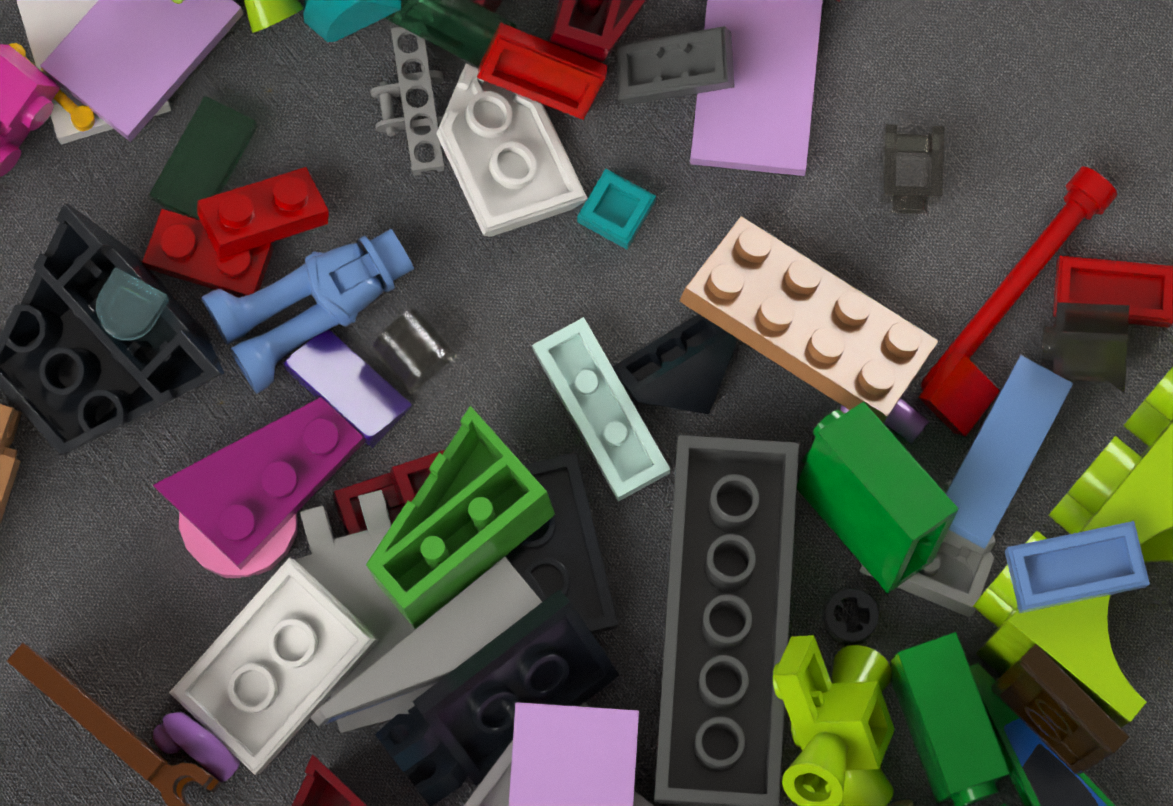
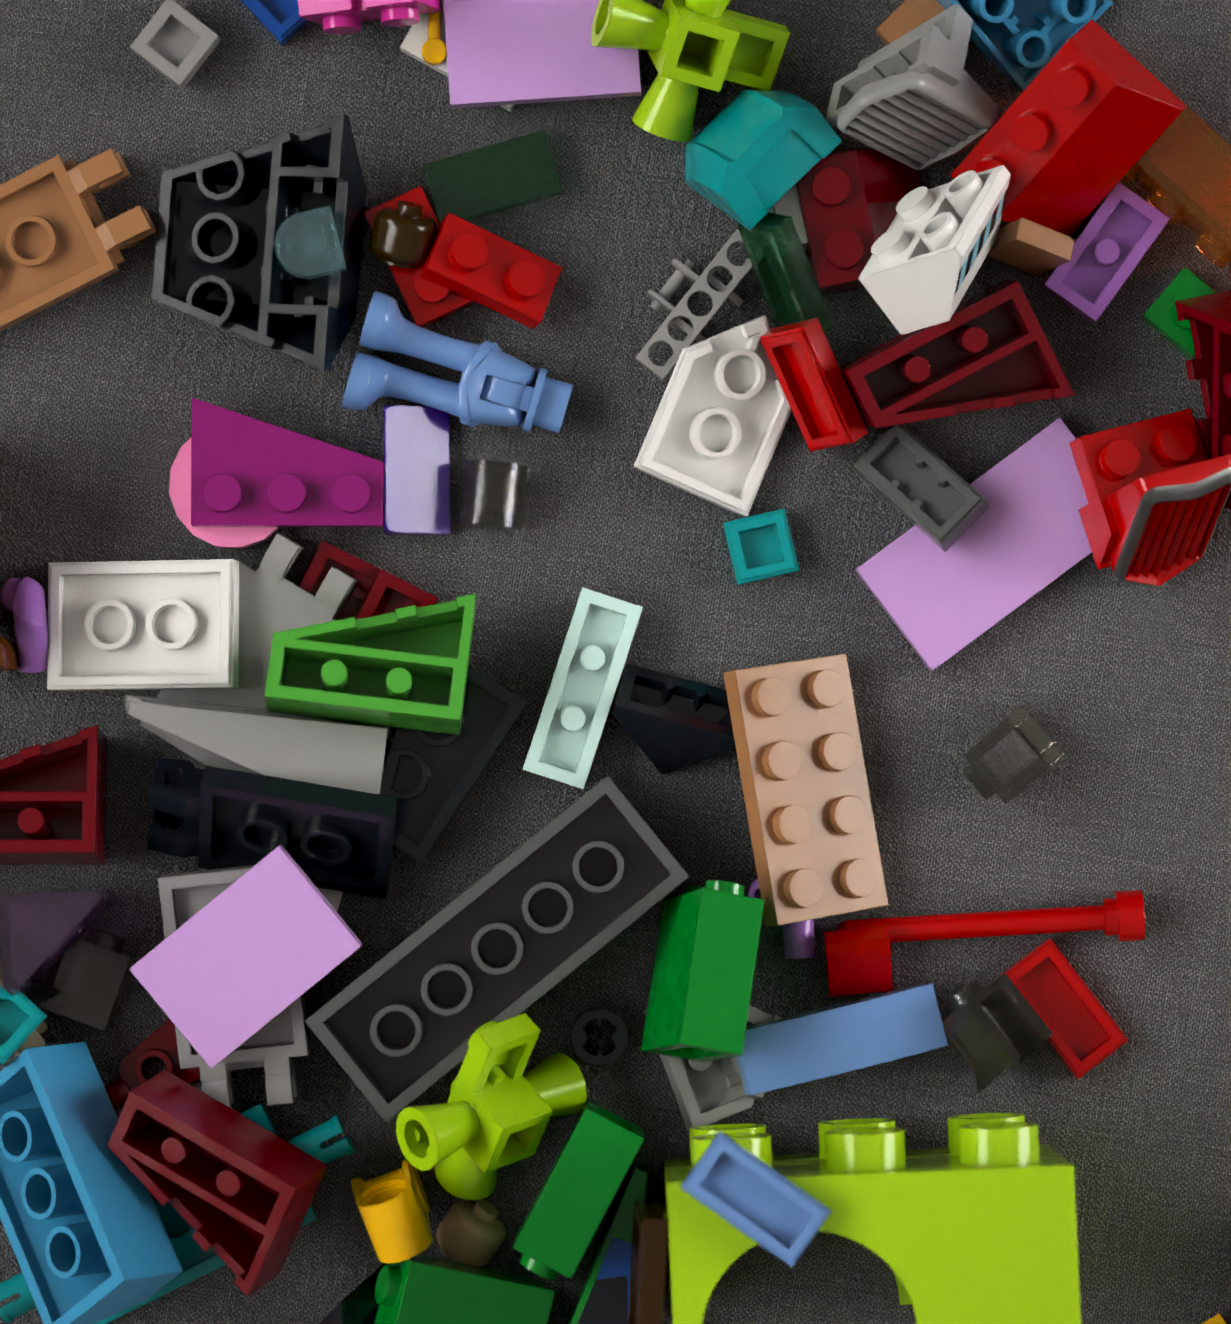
camera: 45 degrees right, 10 degrees up
(183, 247) = (403, 235): none -> dark brown piece

